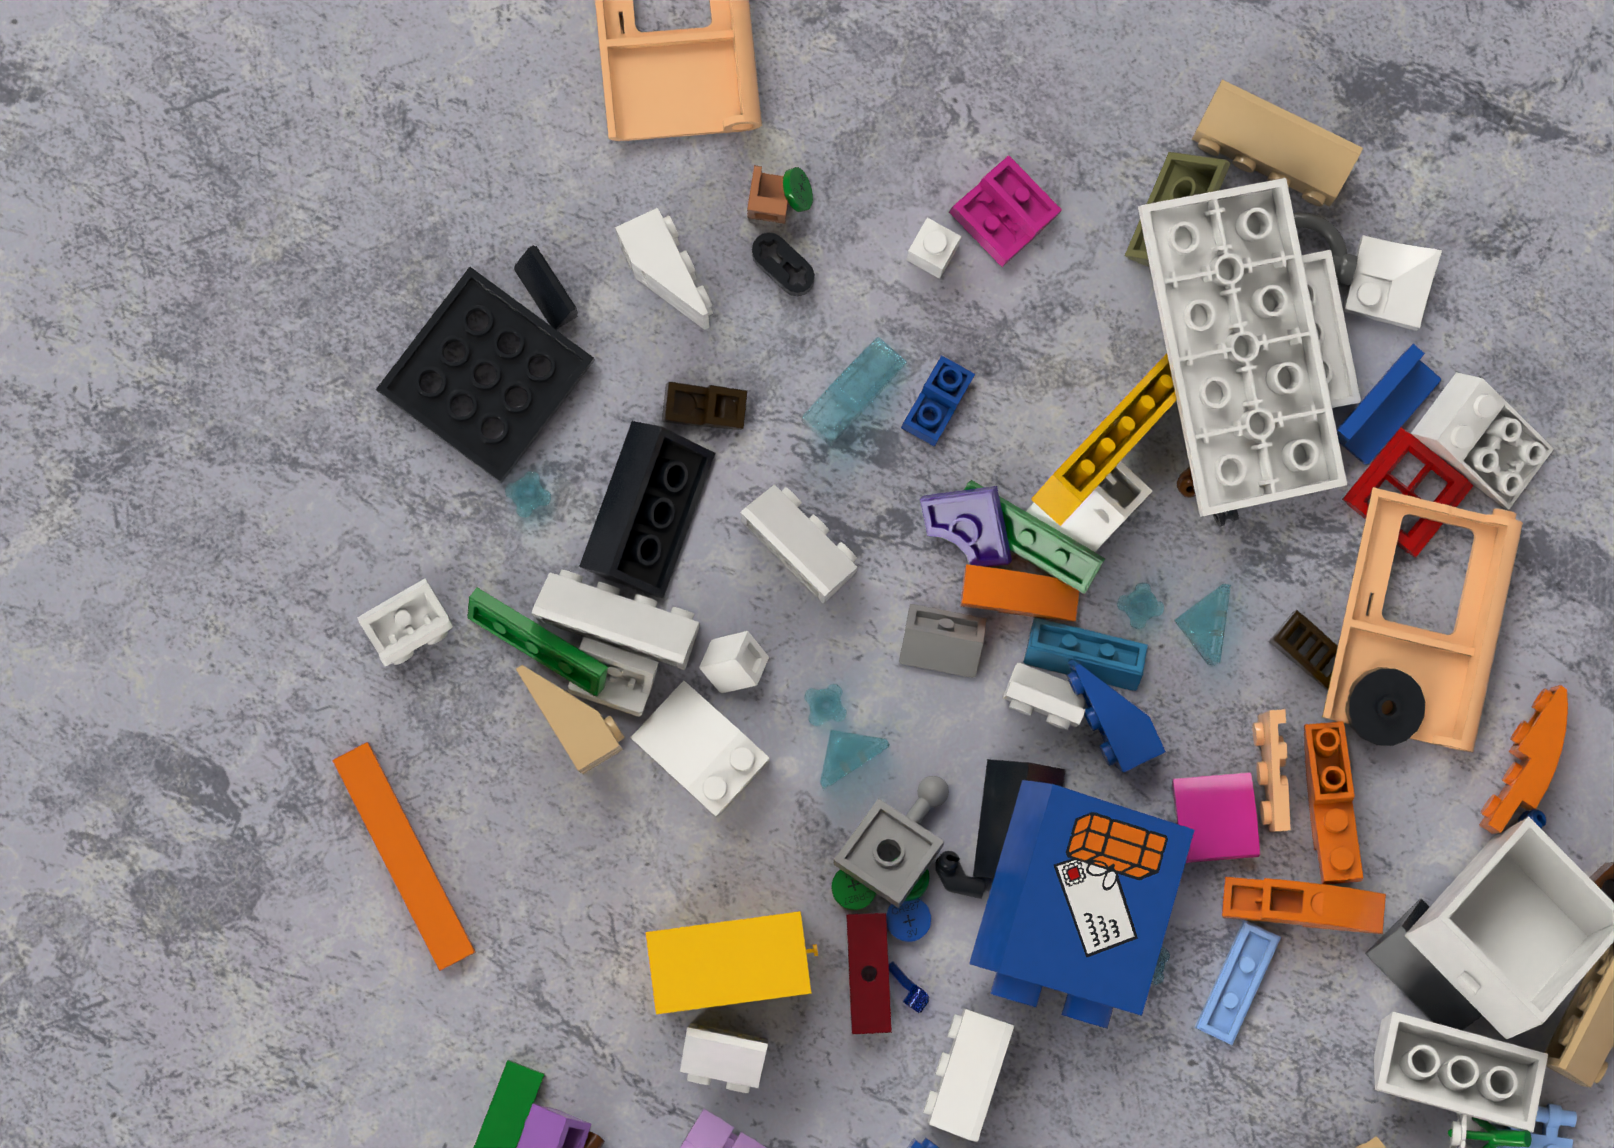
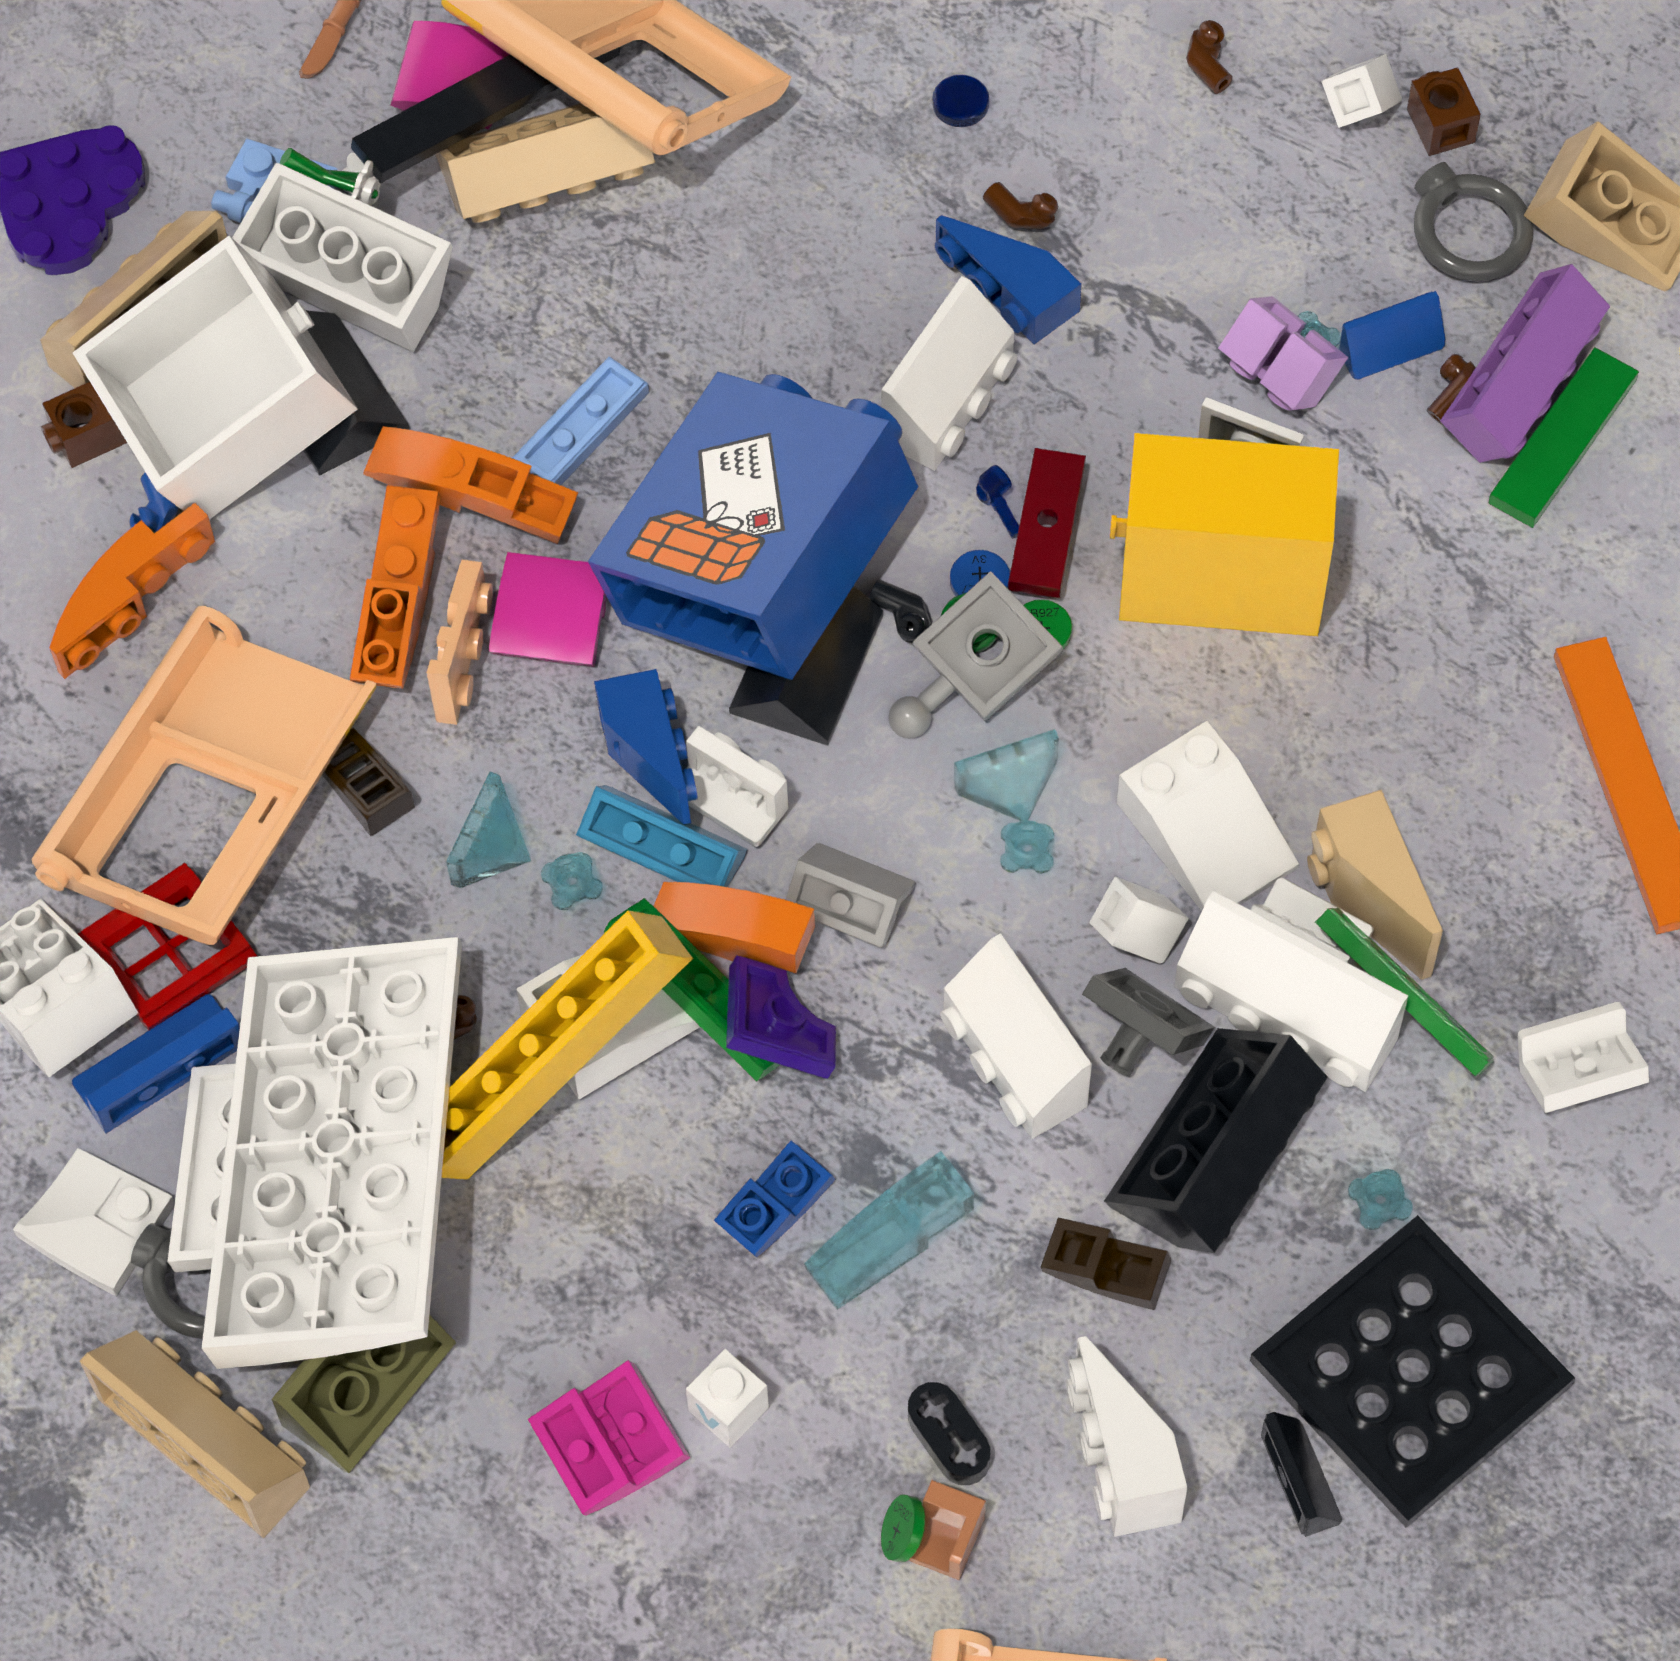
camera: 160 degrees left, 20 degrees down
(712, 582) = (1145, 1017): none -> dark grey tile
(1366, 702) = (290, 681): black plate -> none

